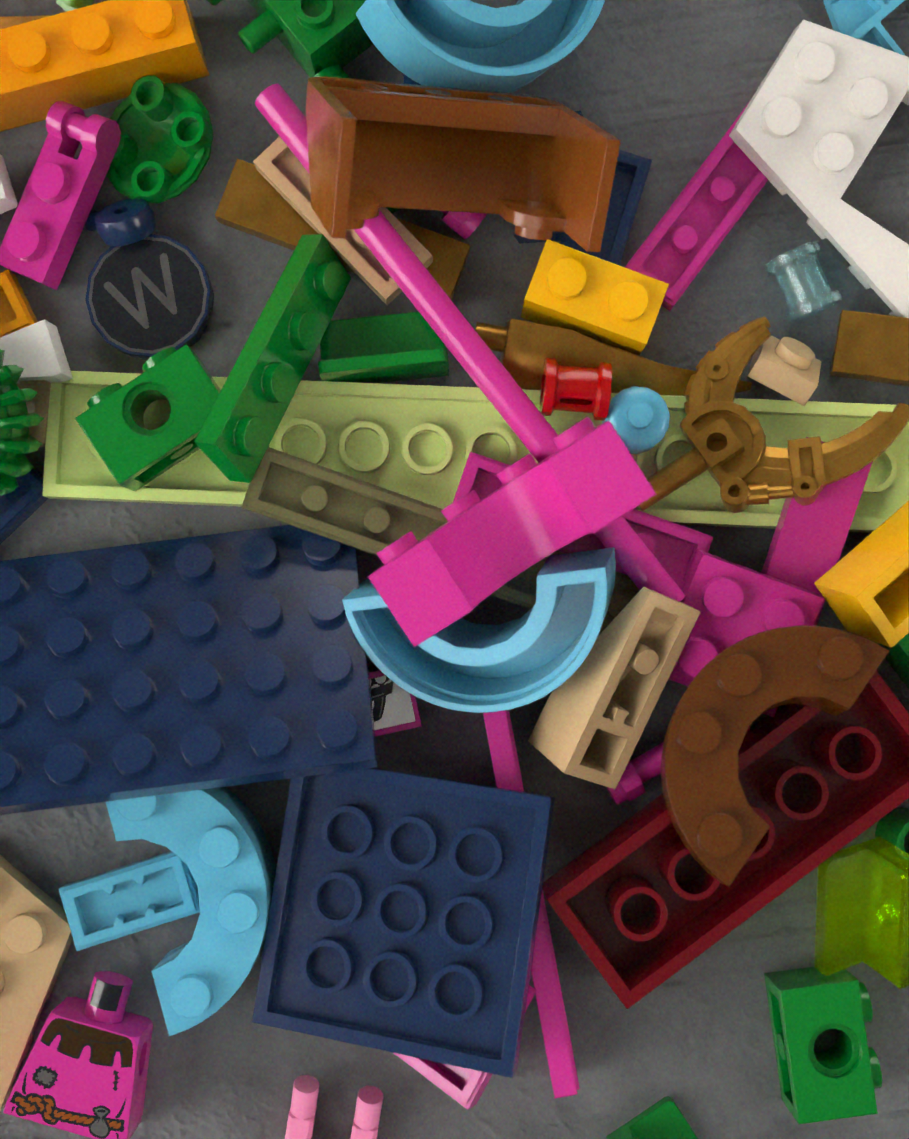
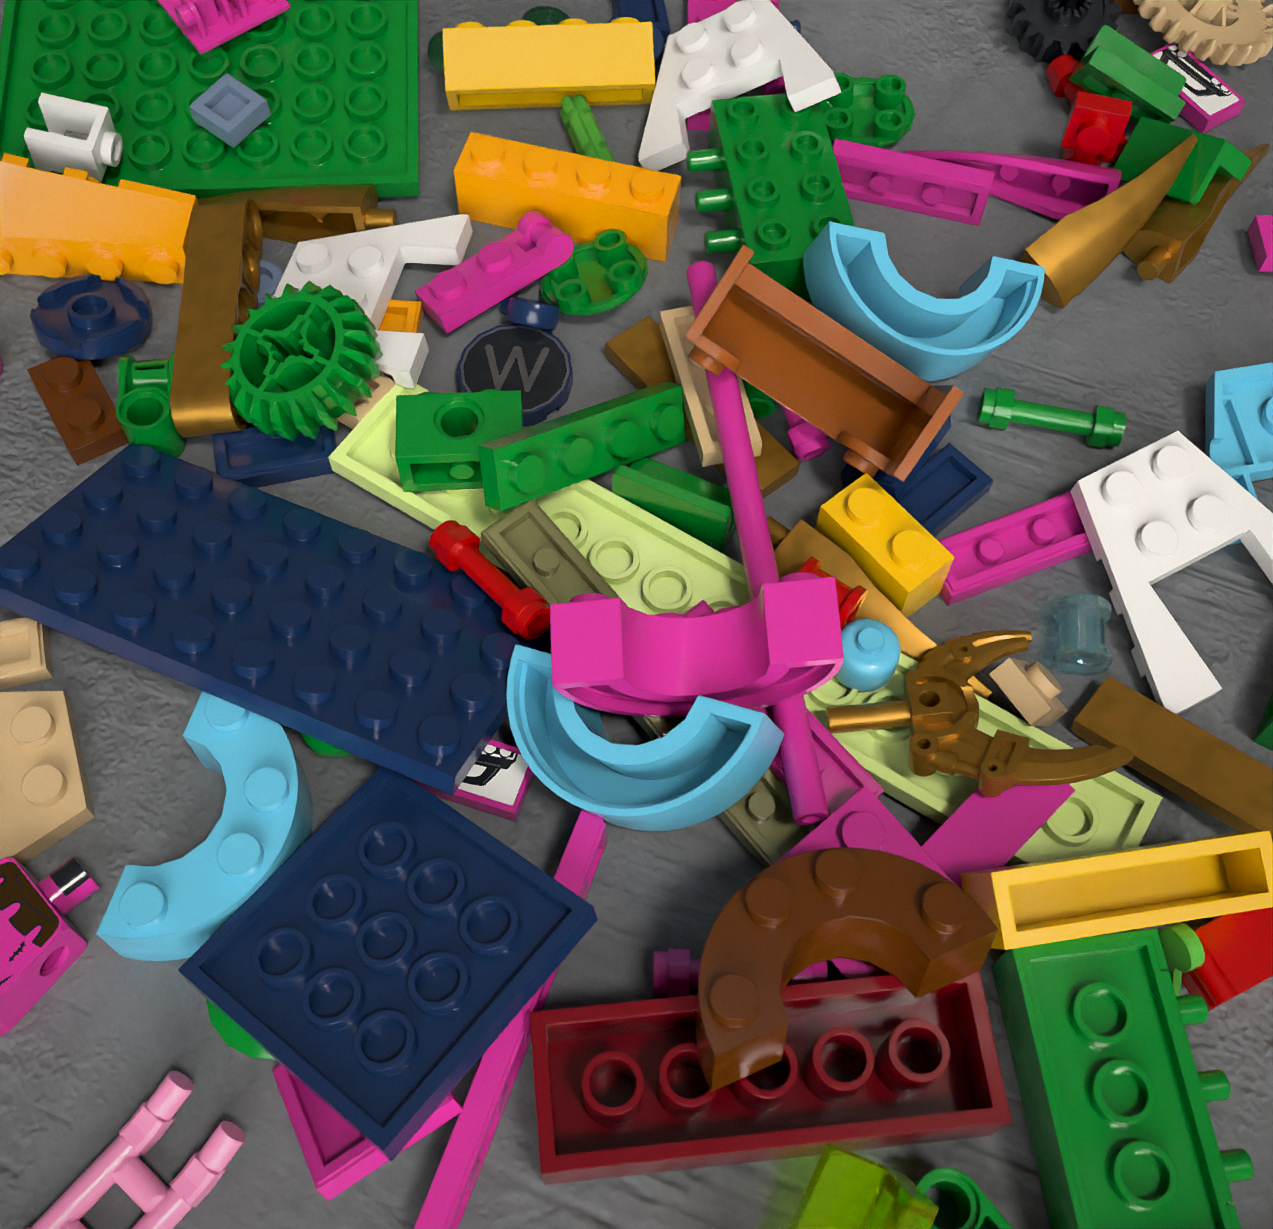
camera: 30 degrees right, 25 degrees down
(129, 899) = (149, 811): medium azure plate -> none
(225, 525) = (523, 609): none -> red bar
(607, 702) = (701, 866): tan slope -> none
(721, 41) = (1101, 427): none -> green bar

